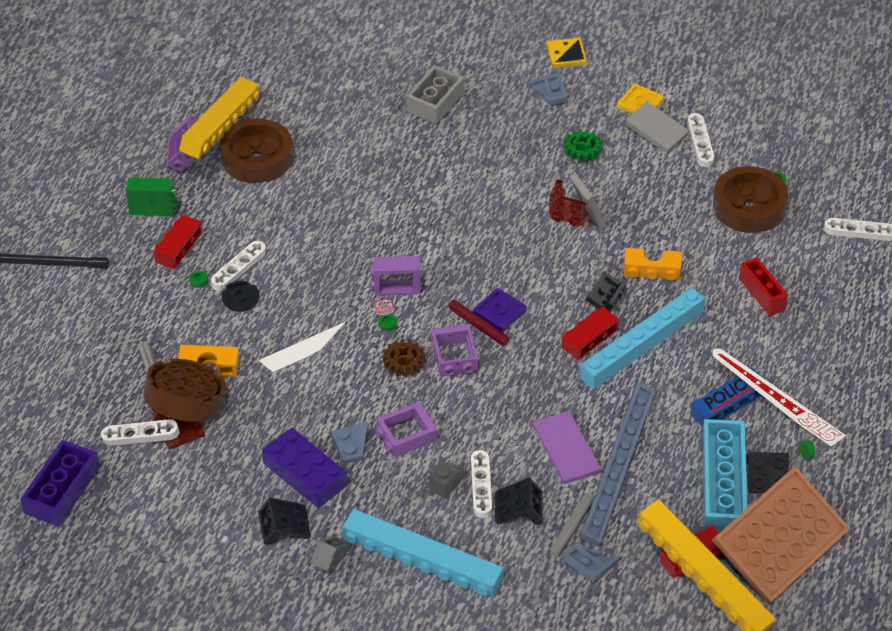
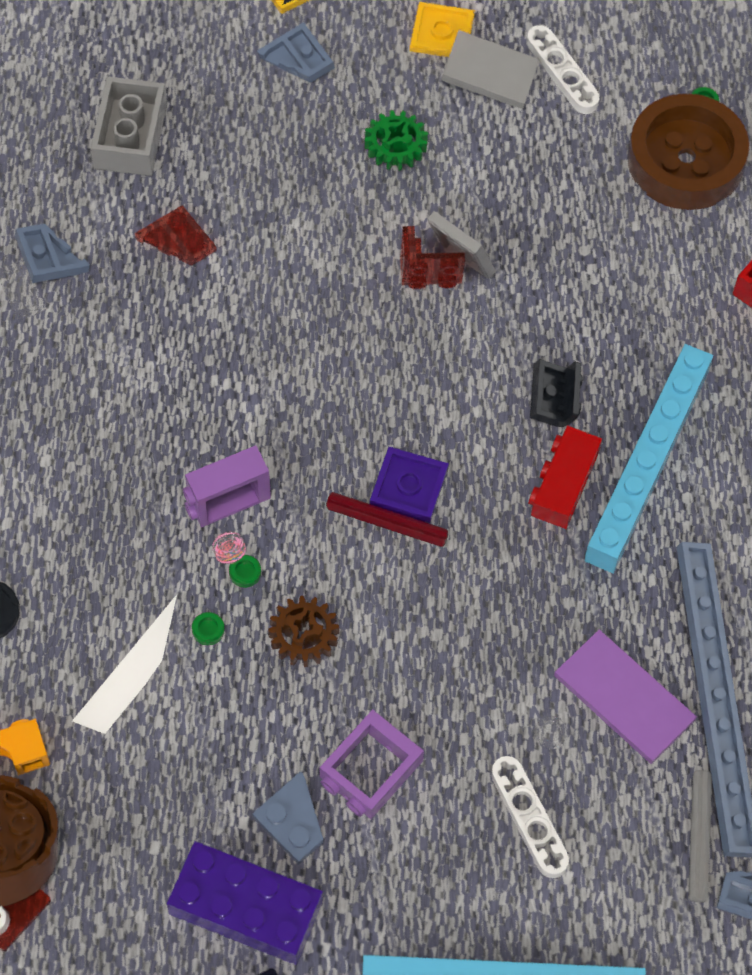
camera: 25 degrees left, 15 degrees up
(353, 342) = (208, 628): none -> green tile
(359, 143) = (47, 255): none -> sand blue wing
(435, 156) = (178, 236): none -> clear red wing
(446, 479) = (475, 829): dark grey slope -> none
(460, 334) = (363, 559): medium lavender window -> none
(517, 500) = (604, 831): black bracket -> none
(639, 266) = (577, 327): light orange arch -> none

